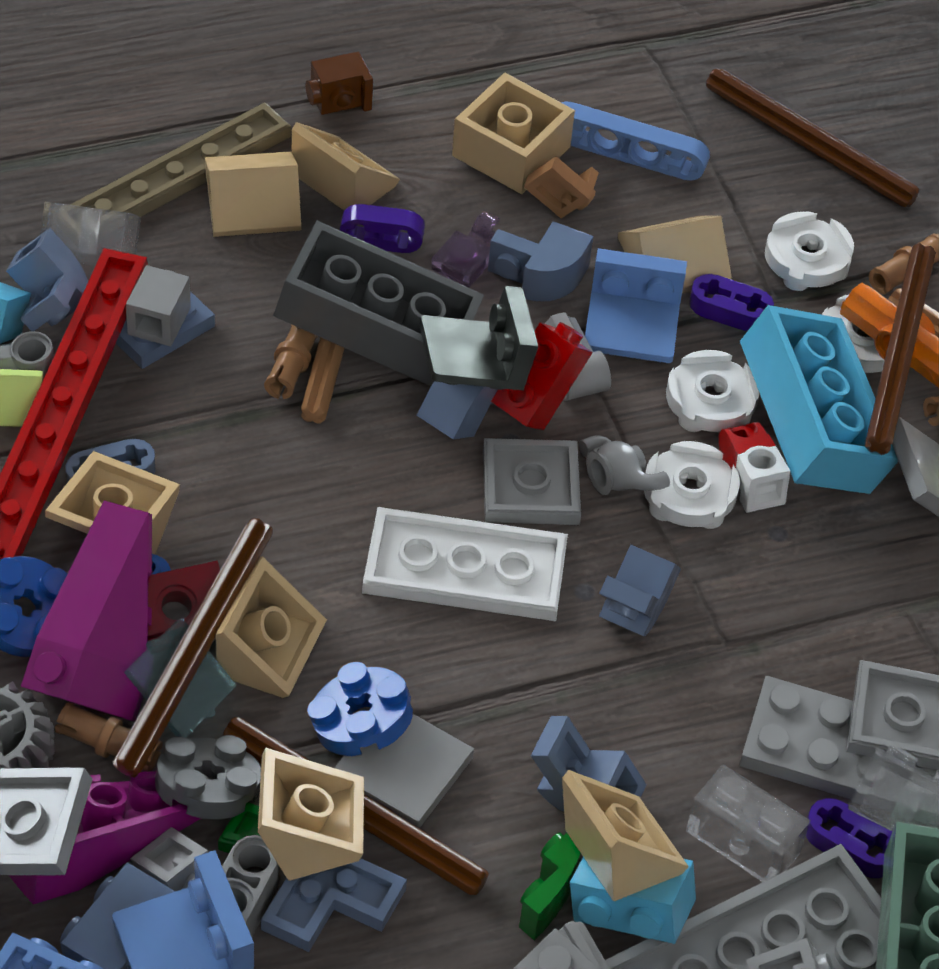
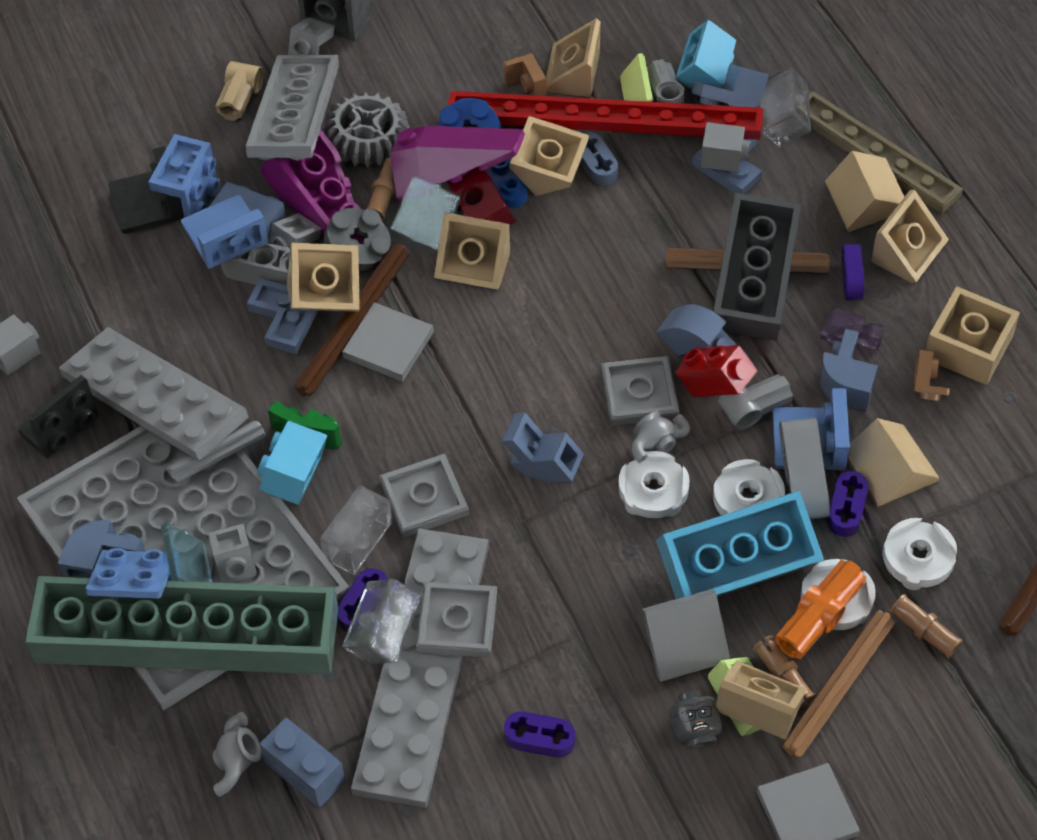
camera: 90 degrees right, 5 degrees up
(192, 649) = (438, 206): reddish brown axle -> none
(290, 360) = (705, 236): medium nougat pin -> none
(340, 83) = (995, 227): reddish brown brick -> none
(359, 688) = (419, 308): plate -> none
(465, 564) = (558, 360): white tile -> none
(482, 352) = (710, 314): pearl dark grey bracket -> none
(564, 749) = (383, 432): sand blue brick -> none
(618, 836) = (312, 430): tan slope -> none
(628, 149) = (1000, 419): medium blue beam -> none
(676, 746) = (424, 495): none -> light grey tile
(689, 320) = (805, 464): none -> light grey beam
(759, 464) = (676, 515): white leg -> none
(900, 350) = (789, 589): reddish brown axle -> none

